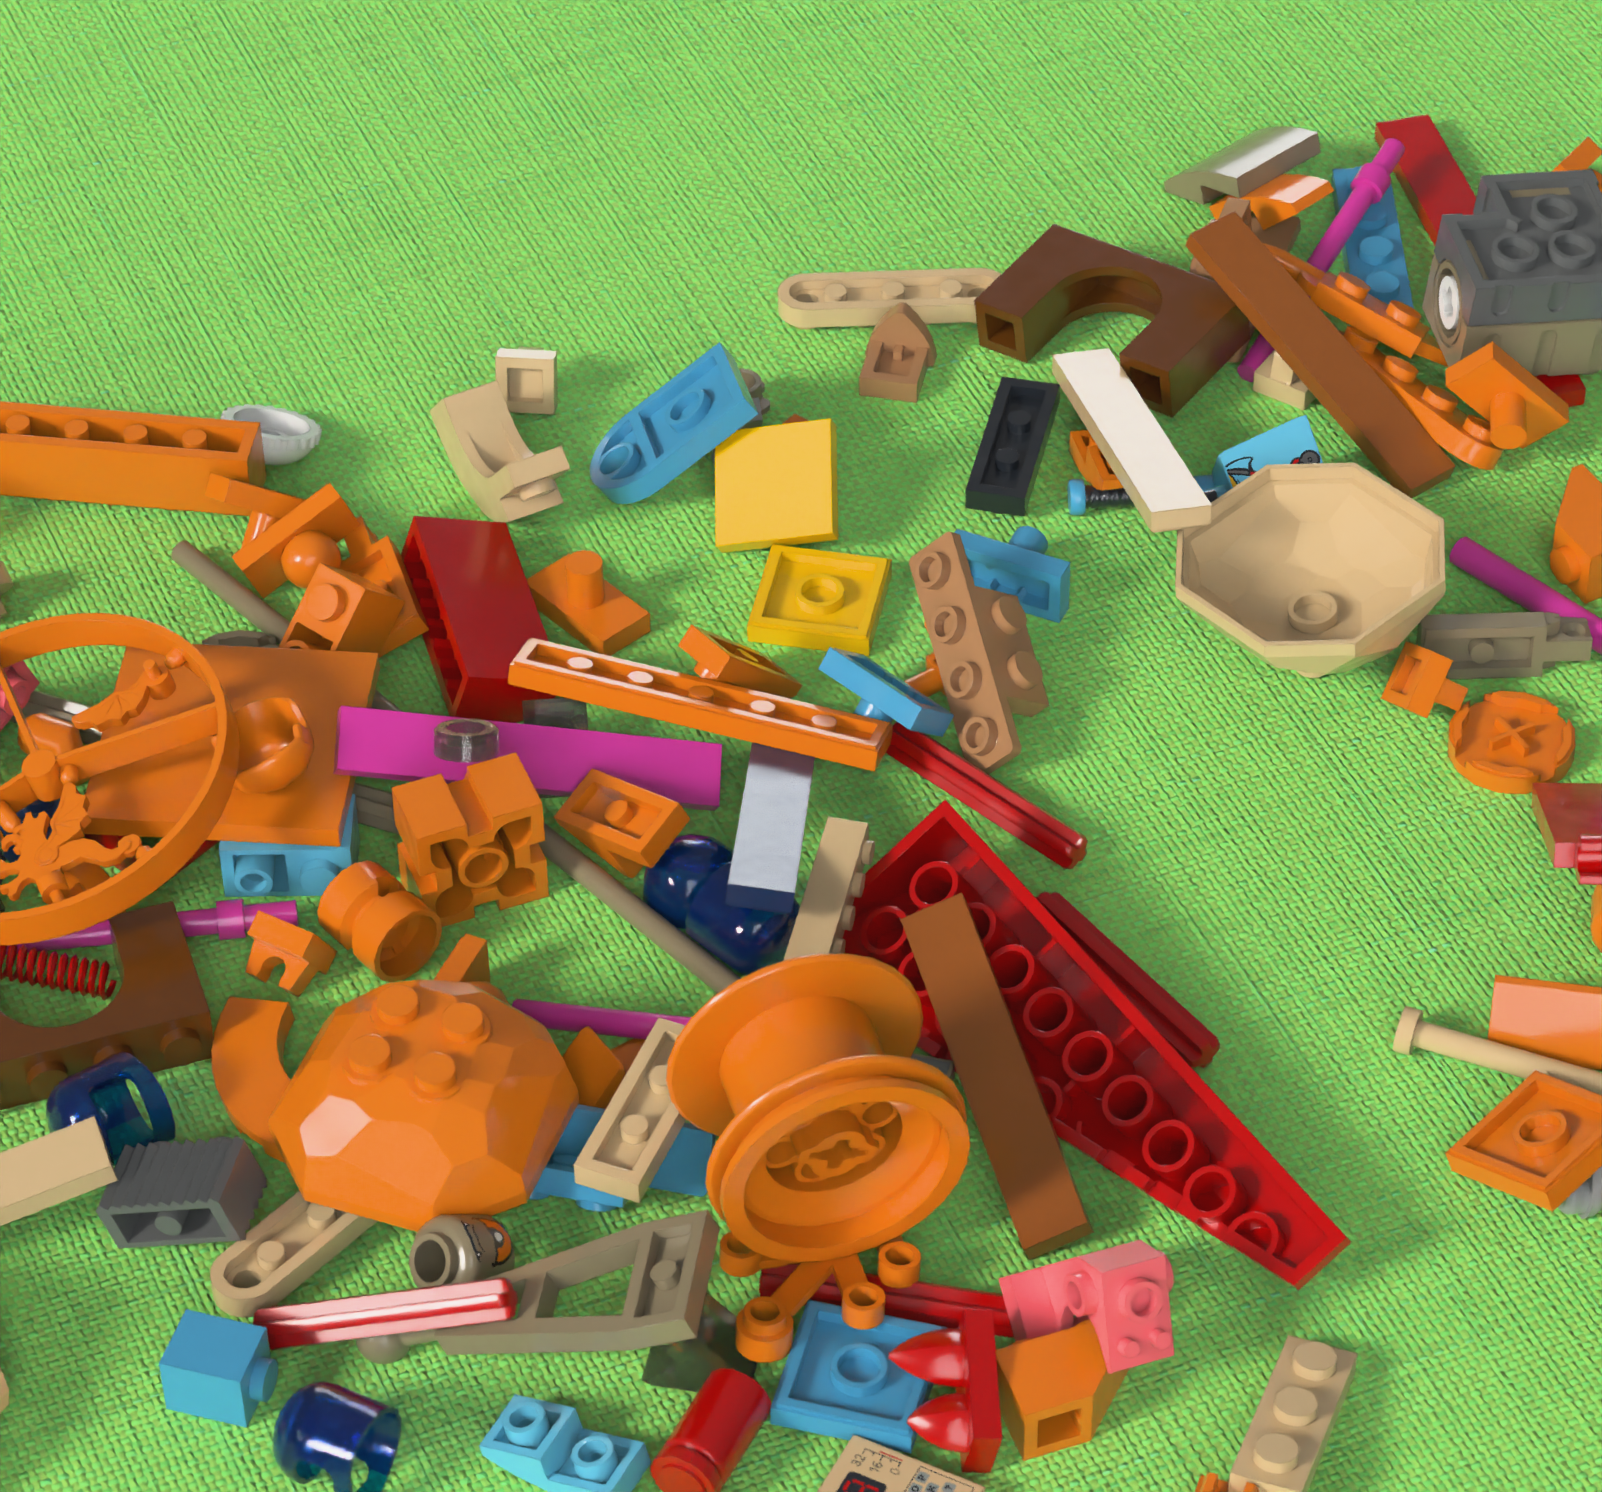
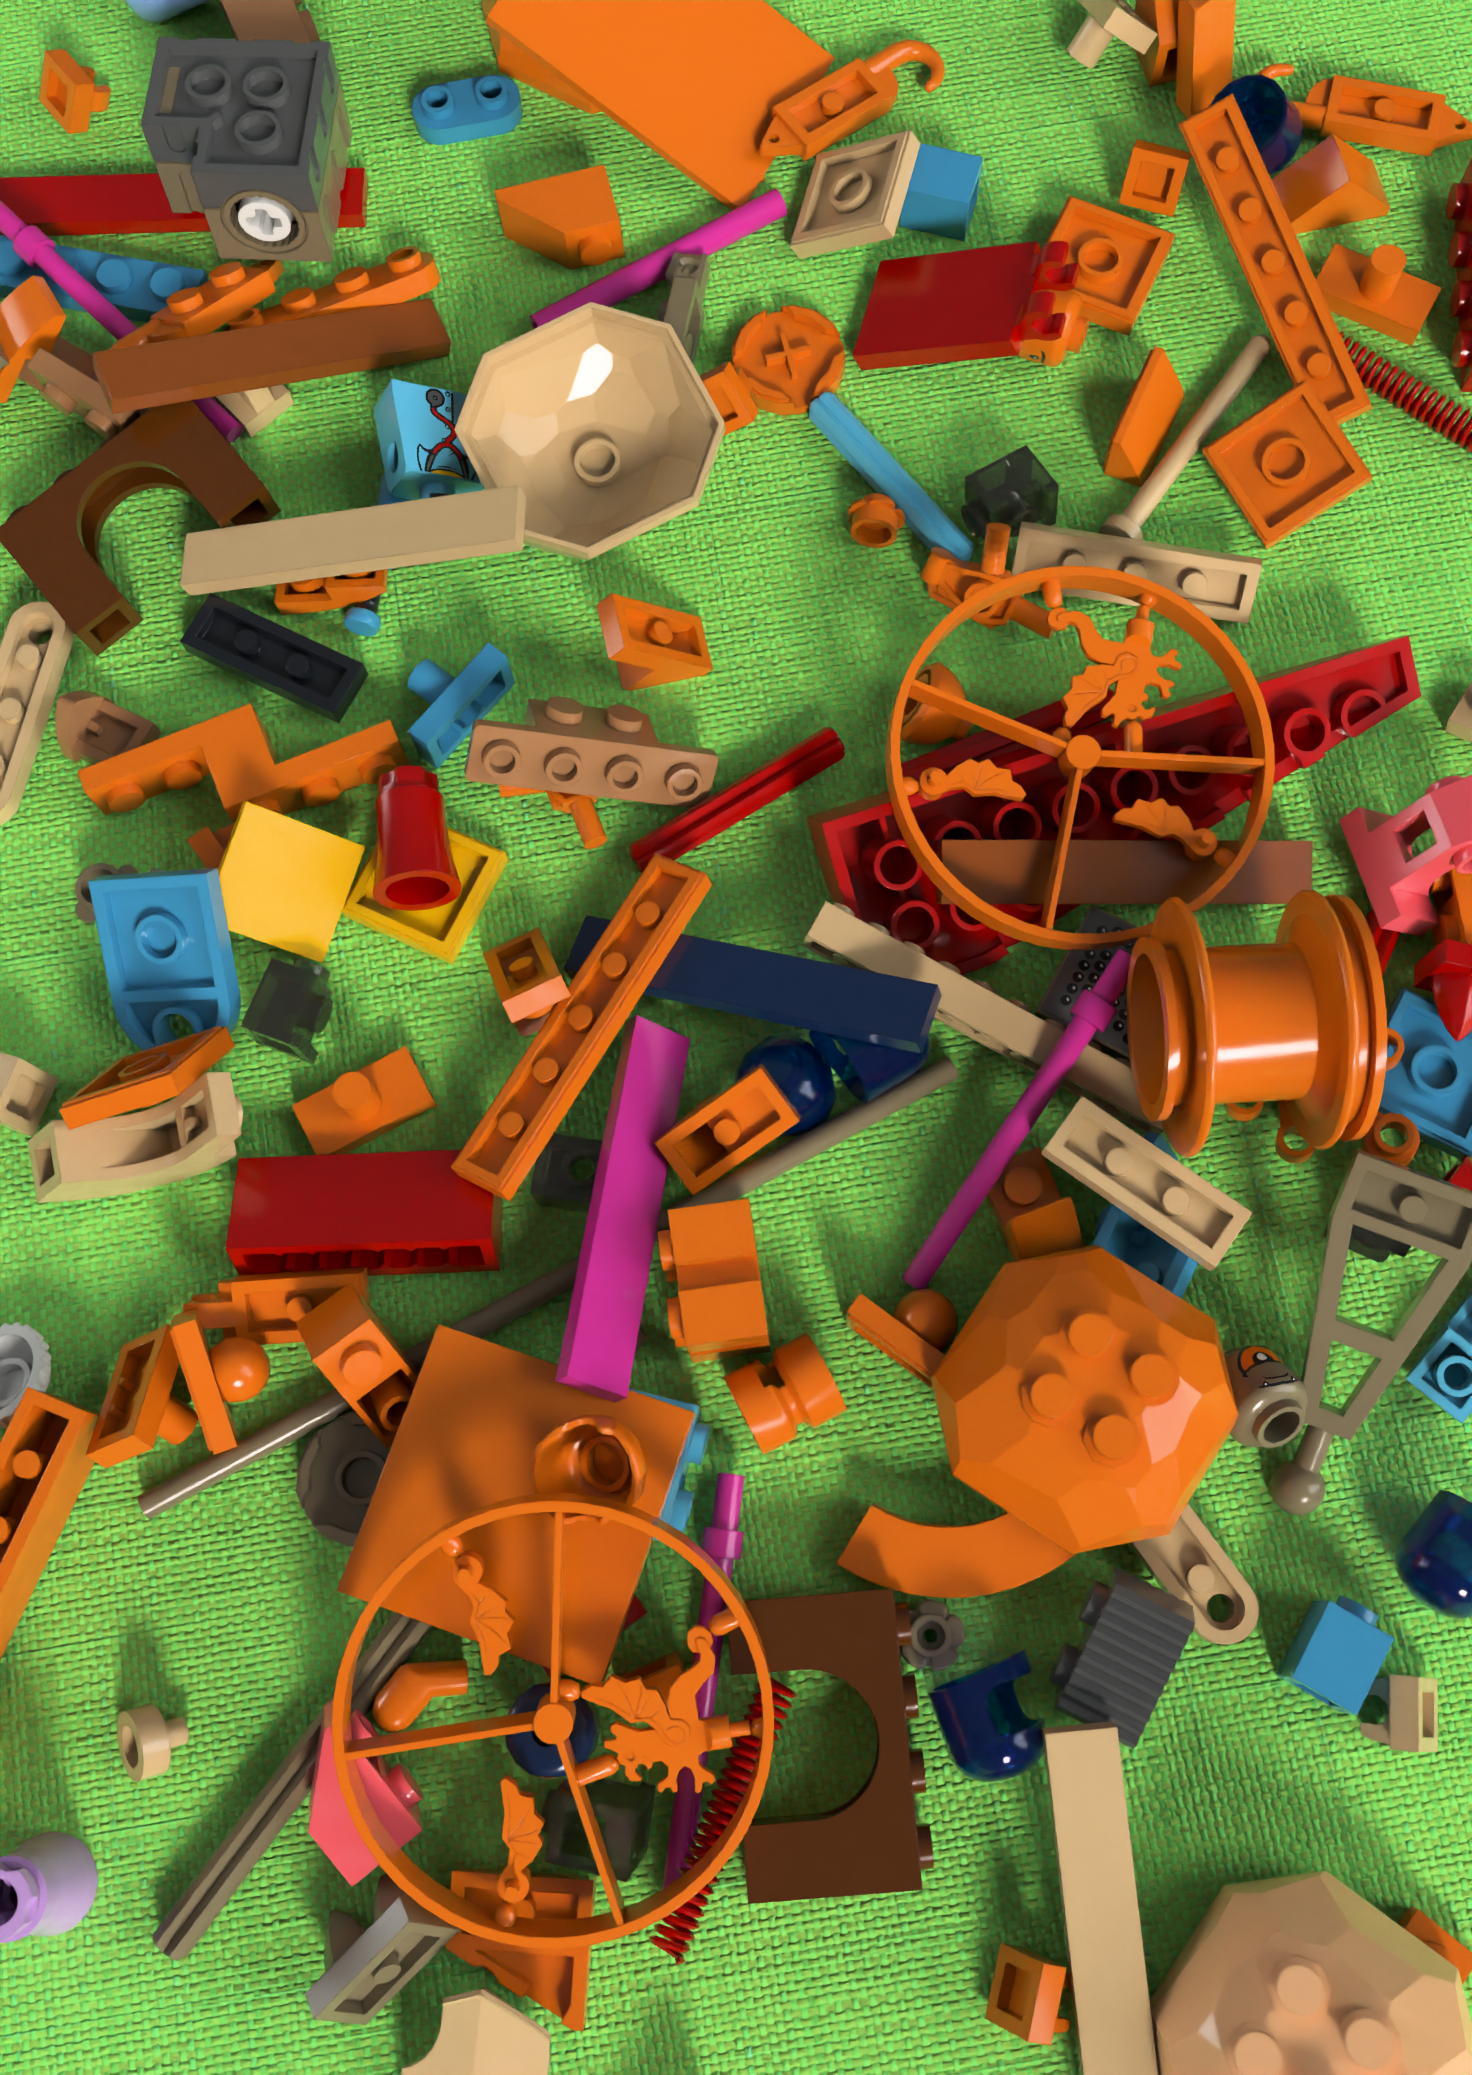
camera: 70 degrees left, 30 degrees up
(172, 1435) = (1411, 1713): none -> tan tile
(180, 1077) = (949, 1631): none -> dark tan plate
(285, 943) = (788, 1488): orange tile -> none
(388, 1313) = (1323, 1483): axle -> none
(466, 740) = (637, 1257): clear smoke tile -> none
(555, 432) = (147, 1077): none -> orange plate
(660, 528) = (290, 1008): none -> clear smoke brick
(843, 555) = (413, 842): none -> red plant
(884, 694) = (614, 851): dark azure tile -> none
(888, 445) = (243, 766): none -> orange bracket
(1082, 968) = (1132, 669): none -> orange piece
(1129, 687) = (652, 642): none -> orange slope
(1135, 908) = (927, 724): none -> orange brick
(1289, 924) = (956, 580): none -> orange piece
(1341, 834) = (875, 520): none -> orange plate
(1360, 1043) = (1211, 580): none -> tan plate
(1395, 842) = (887, 476): none -> medium azure axle
(1406, 923) = (1008, 493): none -> clear smoke brick
(1507, 397) = (390, 222): orange tile -> none

